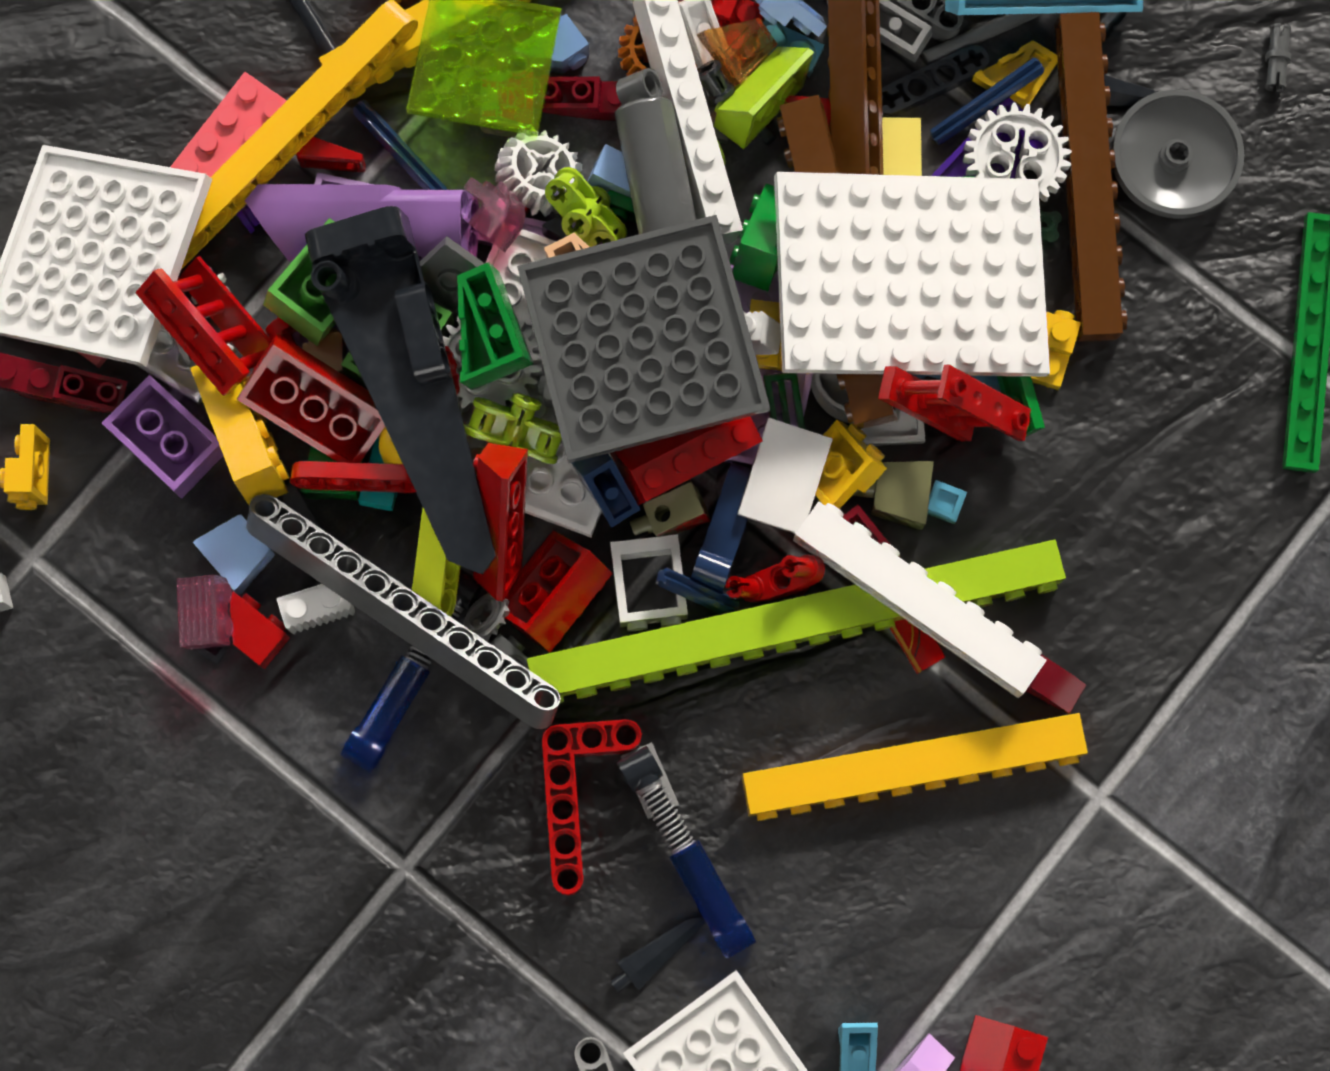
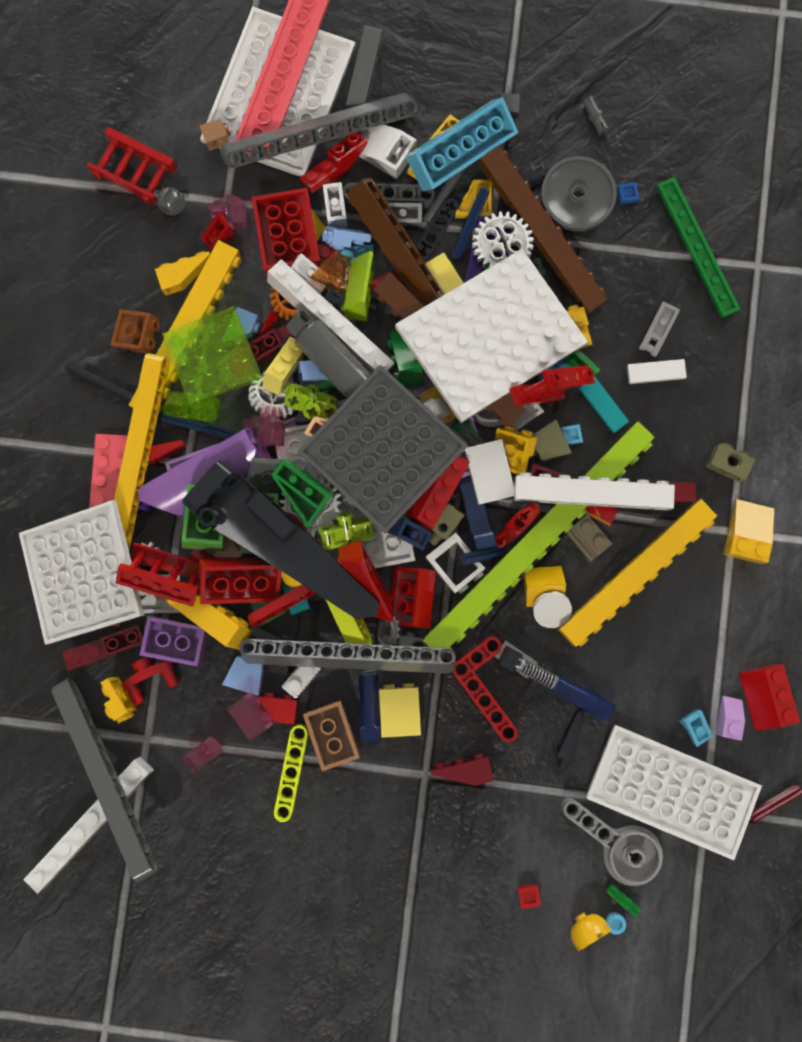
camera: 25 degrees left, 5 degrees up
(93, 453) = (144, 670): none -> red connector
(98, 626) = (202, 754): none -> clear pink brick
(194, 741) = (288, 781): none -> neon yellow beam
(304, 716) = (331, 735): none -> medium nougat brick
(389, 103) = (178, 406): none -> clear neon green beam
(428, 745) = (399, 710): none -> light yellow brick
(475, 903) = (470, 771): none -> dark red slope
(575, 139) = (283, 367): none -> light yellow brick
(604, 64) = (272, 319): none -> red piece
(750, 738) = (552, 609): none -> white tile
(761, 699) = (543, 580): none -> yellow slope
(874, 669) = (588, 538): none -> dark tan plate
(1021, 488) = (604, 406): none -> teal tile
(1125, 812) = (750, 532): none -> yellow slope
(1133, 486) = (656, 371): none -> white tile
(1141, 682) = (719, 462): none -> olive brick
(1177, 425) = (659, 328): none -> light grey plate
(1256, 199) = (628, 193): none -> blue tile

